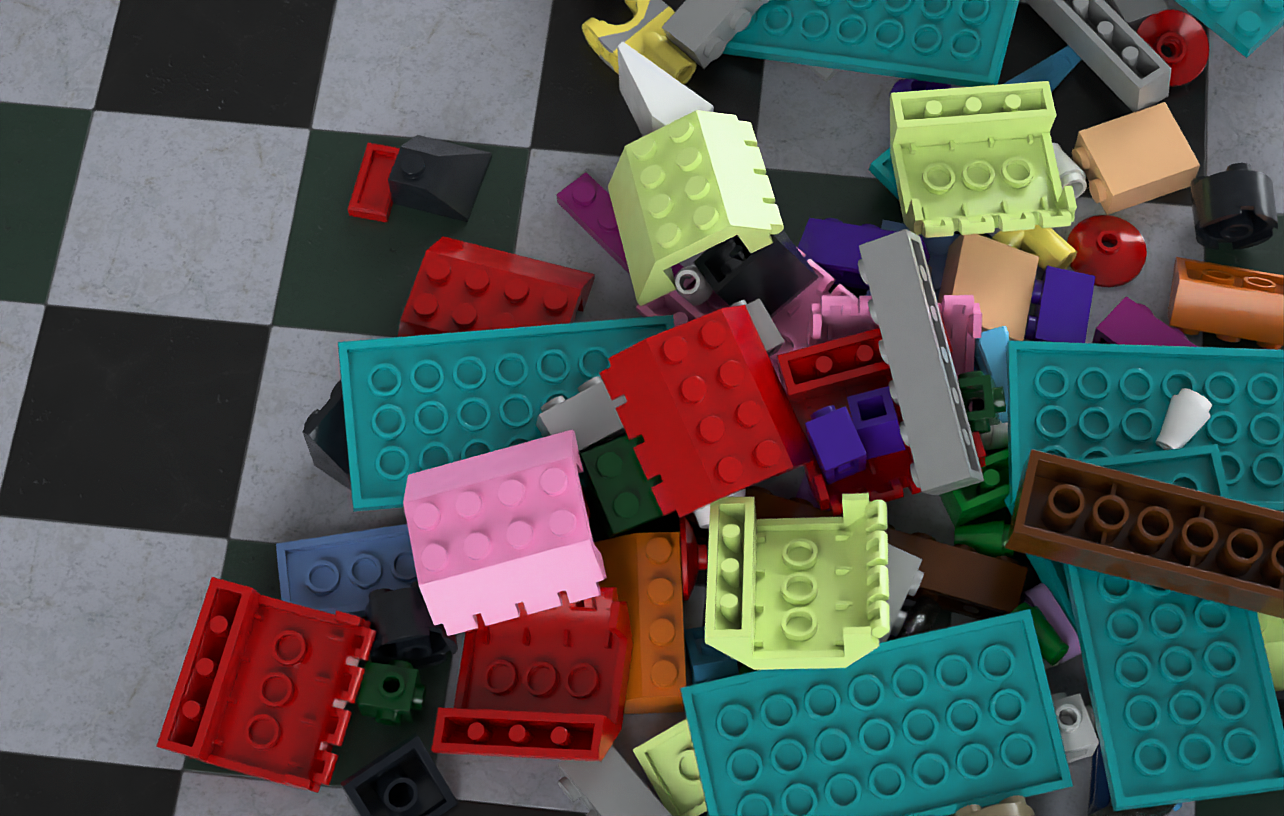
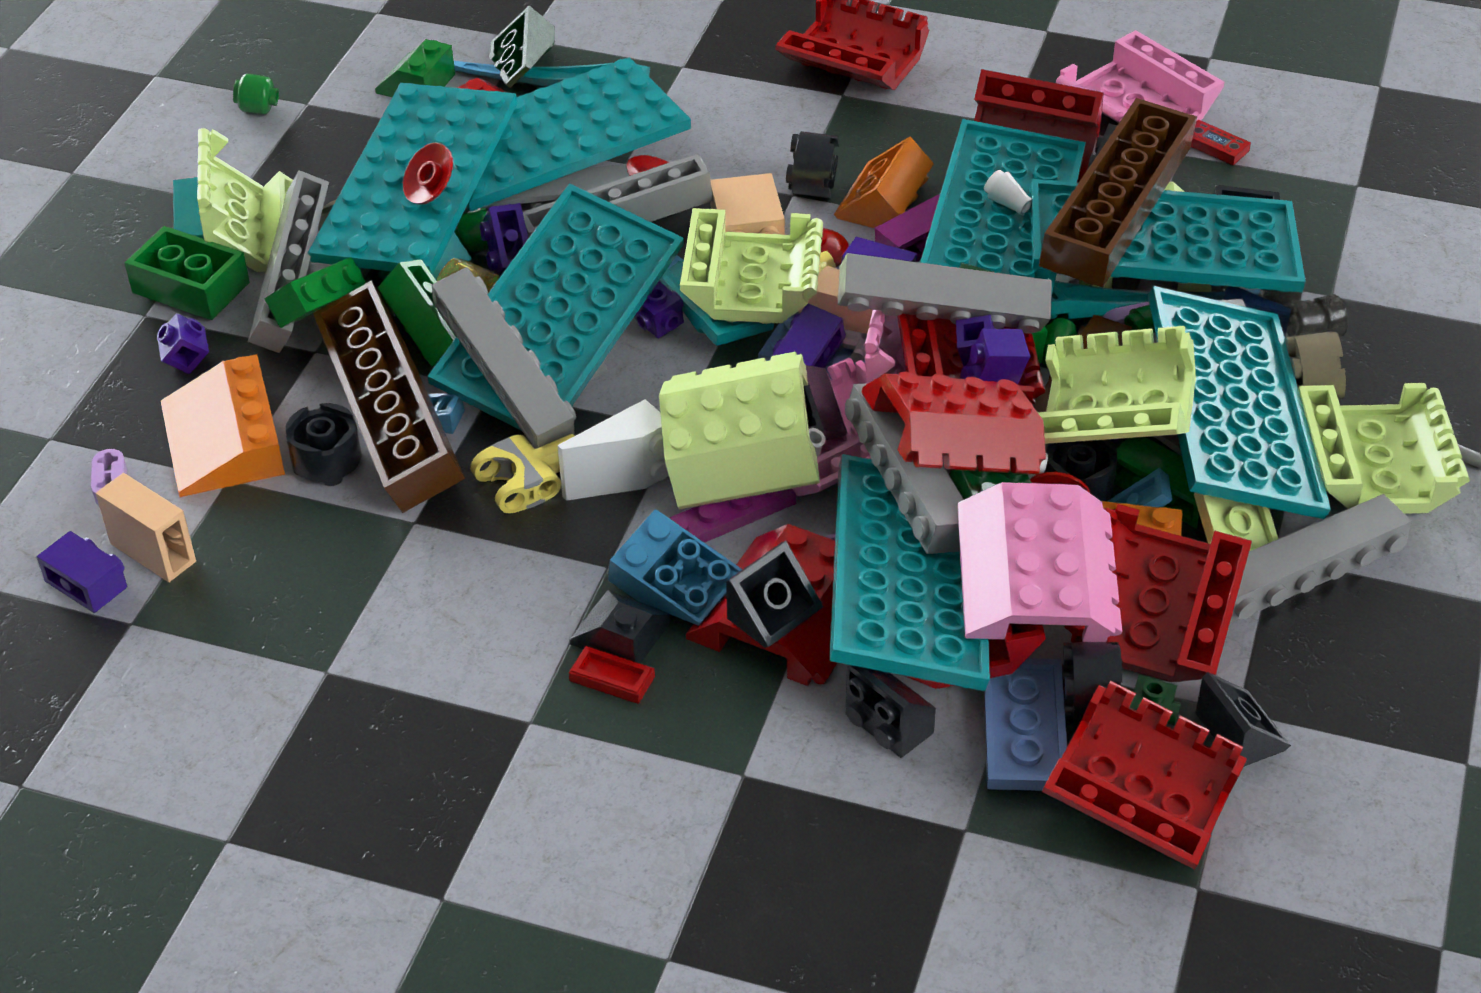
camera: 80 degrees left, 20 degrees down
(437, 284) = (771, 596): none -> black slope
(506, 199) = (671, 570): none -> dark azure slope

